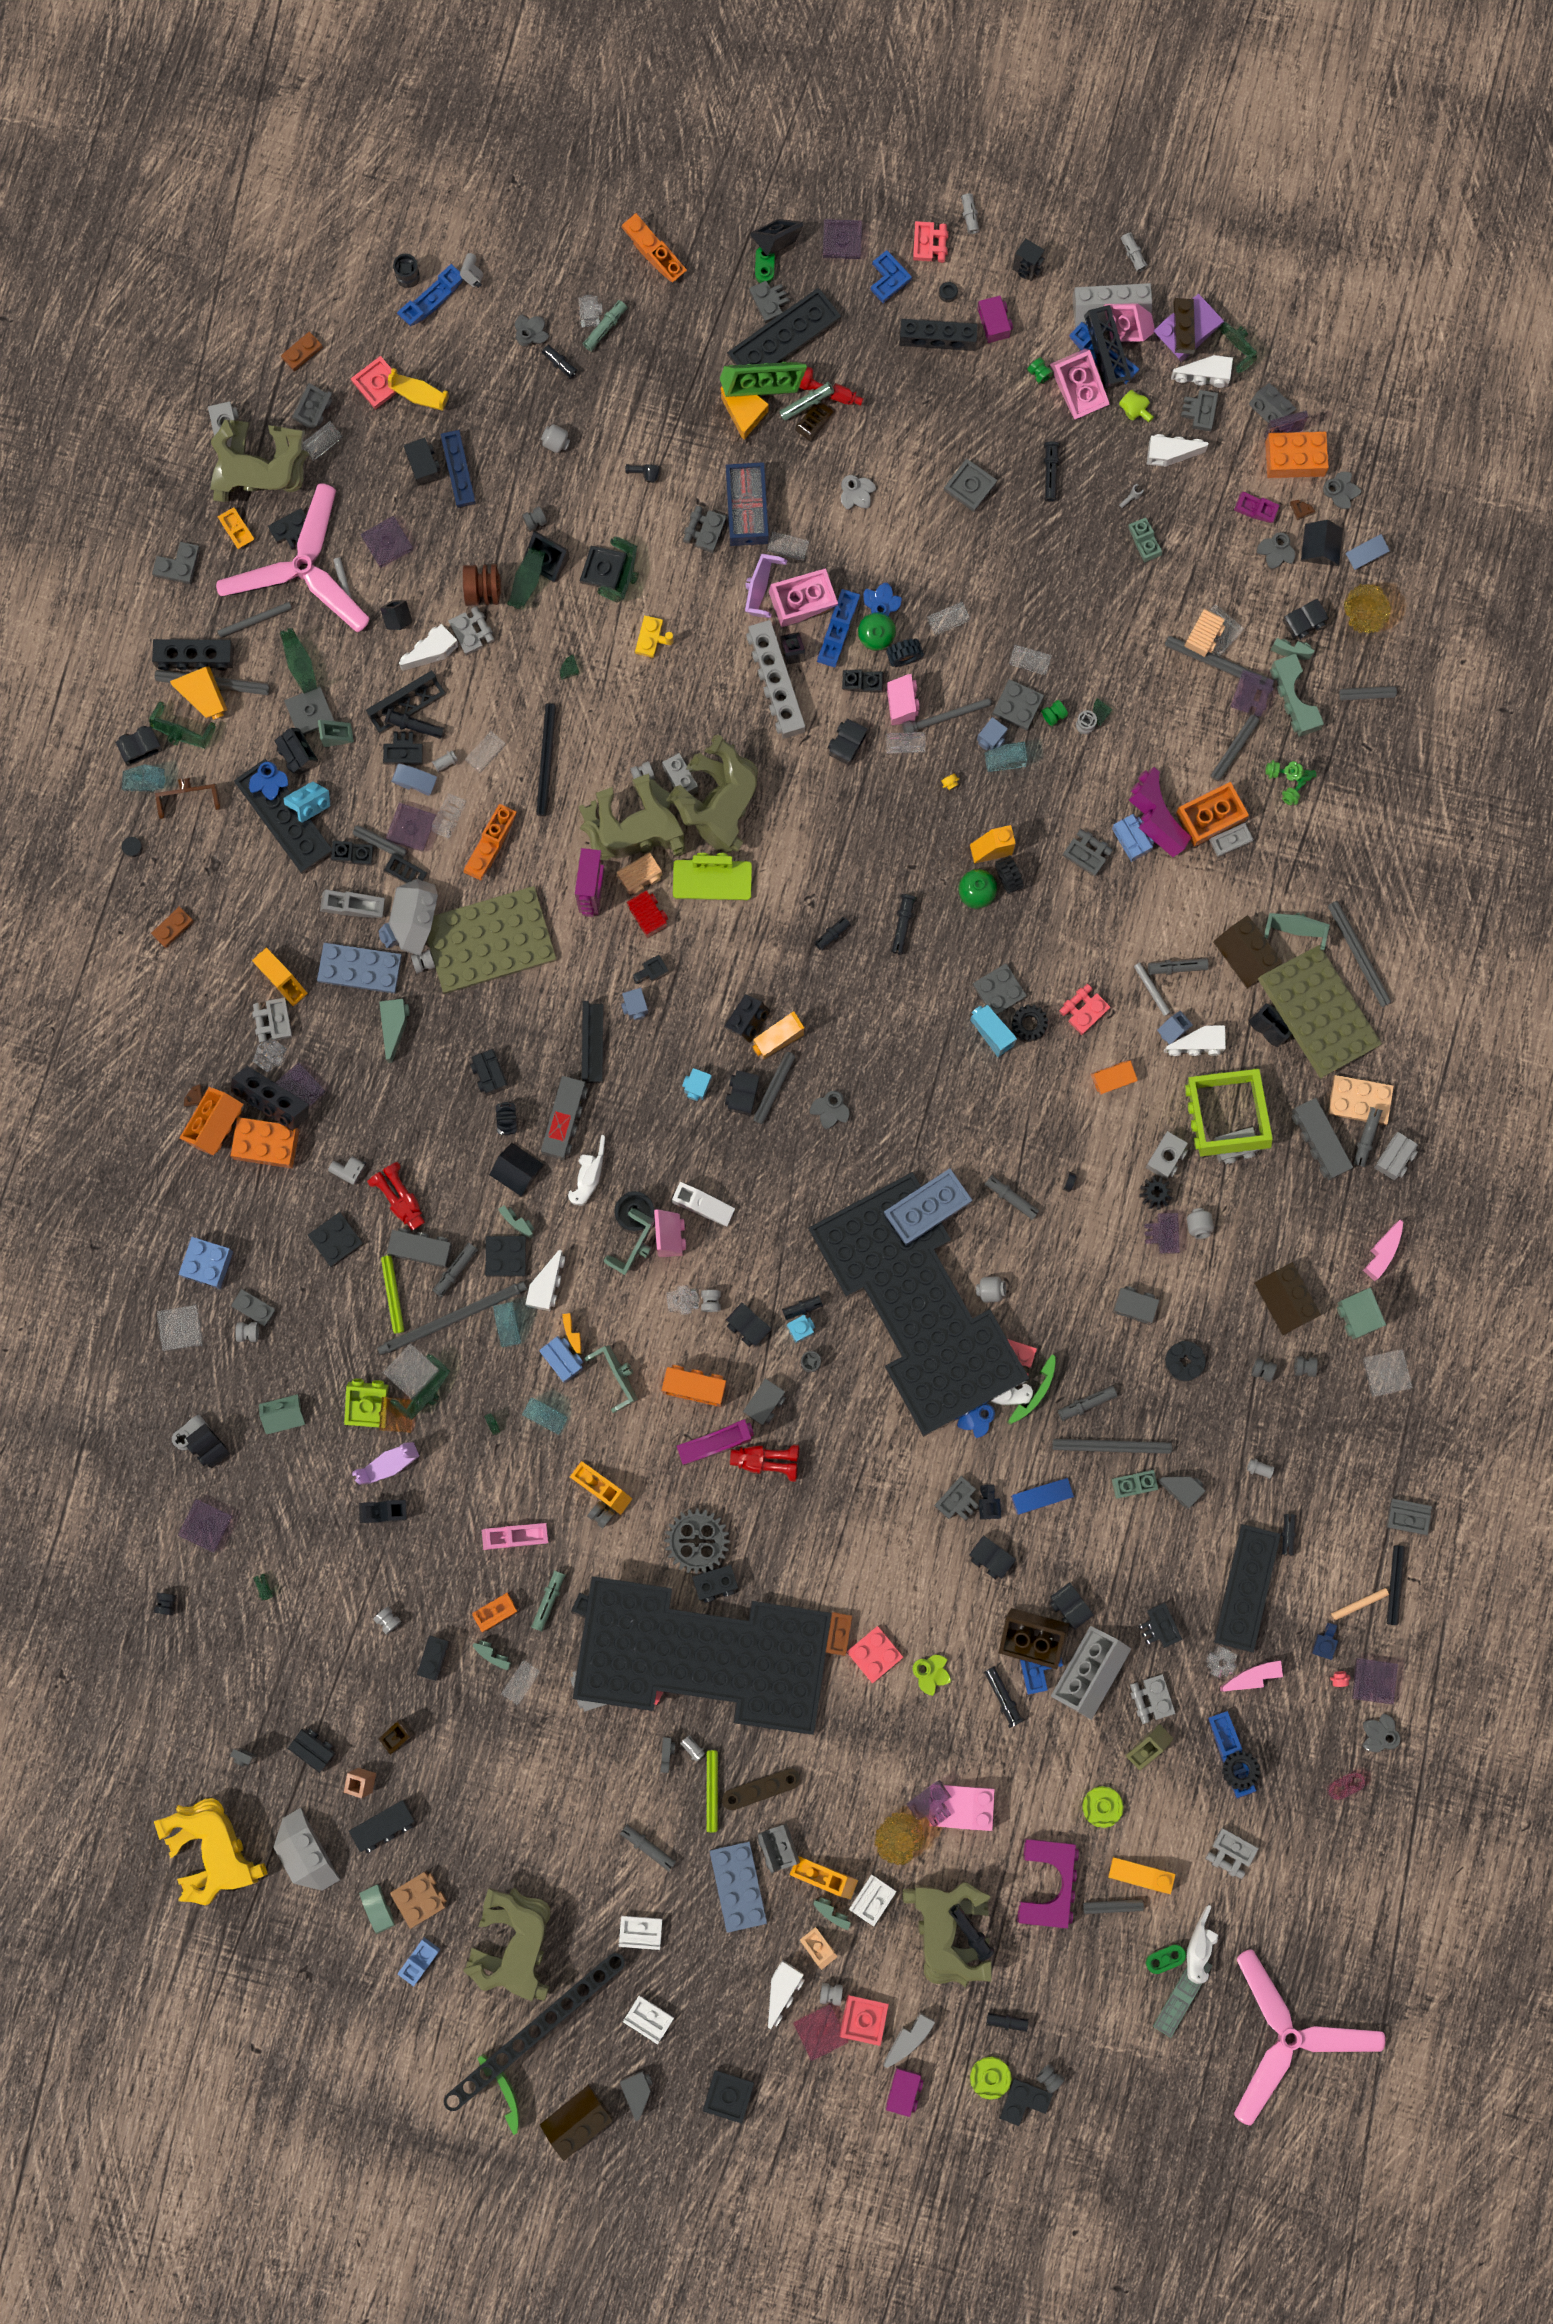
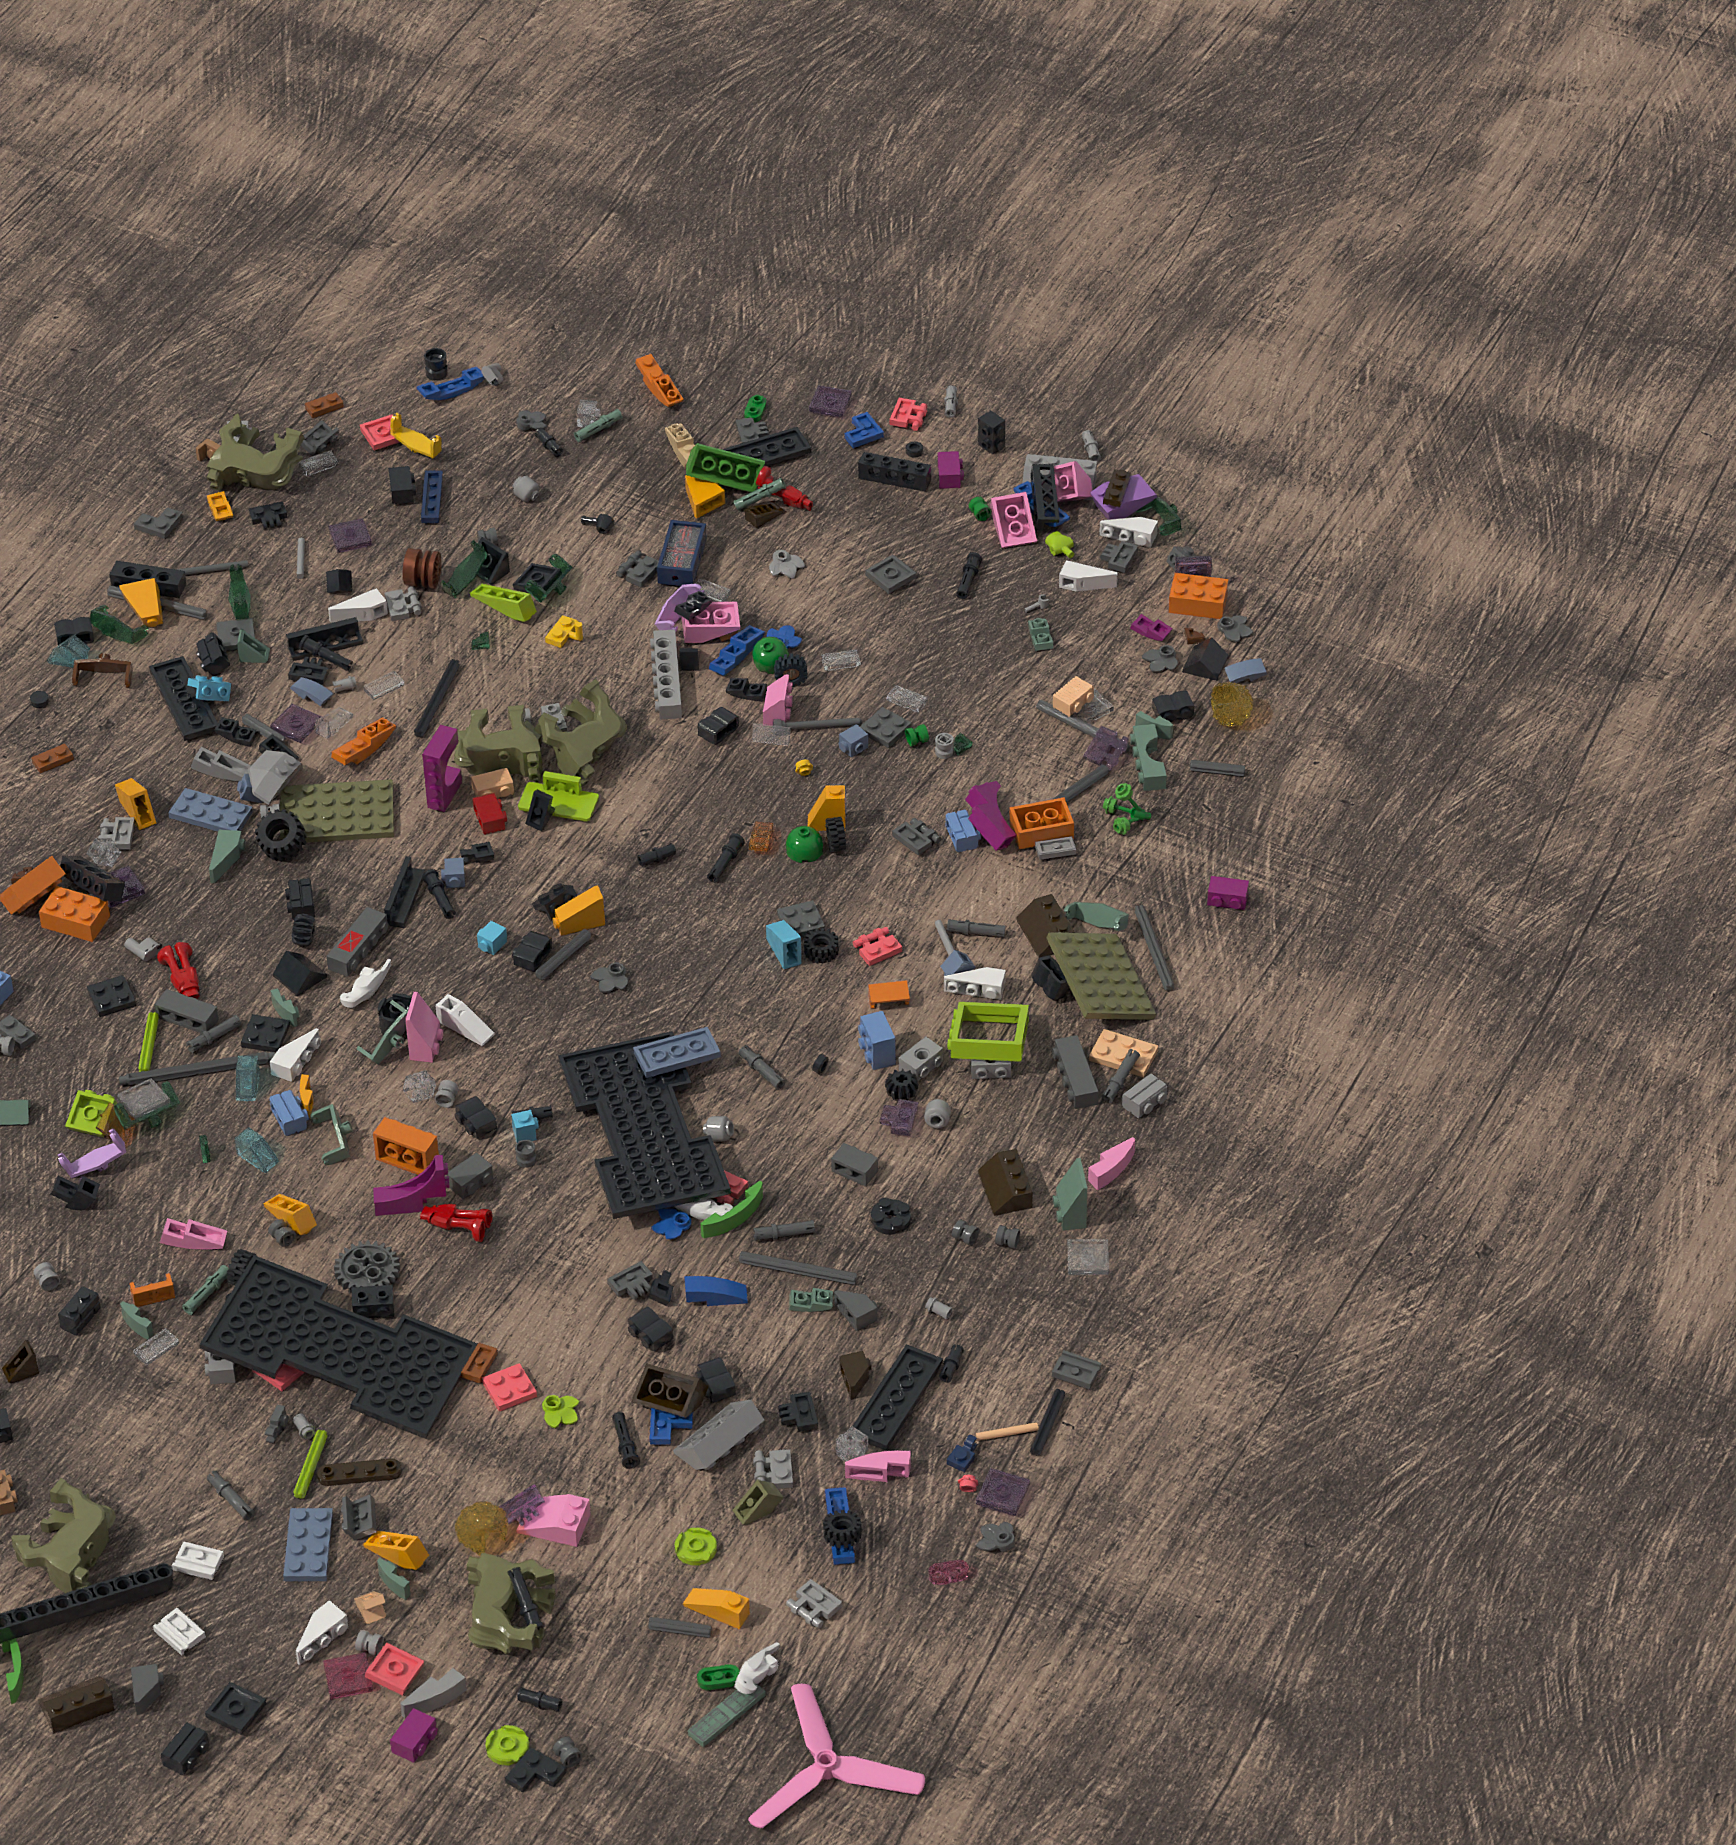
camera: 15 degrees right, 35 degrees down
(202, 448) = (206, 449): none -> medium nougat bracket
(268, 783) = (179, 667): blue plate -> none
(317, 580) = (271, 536): bright pink piece -> none
(434, 1008) = (288, 846): none -> black tyre
(577, 607) = (509, 602): none -> lime slope
(578, 1574) = (238, 1265): none -> black tyre
(622, 1027) = (436, 888): none -> black pin
(696, 2155) = (185, 1749): none -> black brick
(700, 904) = (540, 810): none -> black slope
(706, 340) = (680, 441): none -> tan slope
(777, 235) = (772, 387): black slope -> none
(784, 589) = (694, 605): none -> black slope
(872, 1900) = (438, 1576): white plate -> none
(931, 886) = (761, 836): none -> clear orange slope
(1006, 757) = (862, 758): clear light blue slope -> none
(1057, 1911) = (620, 1616): magenta arch -> none
(1120, 1146) = (877, 1040): none -> medium blue brick
(1201, 1568) = (855, 1372): none -> dark brown slope
(1417, 867) = (1228, 892): none -> magenta brick

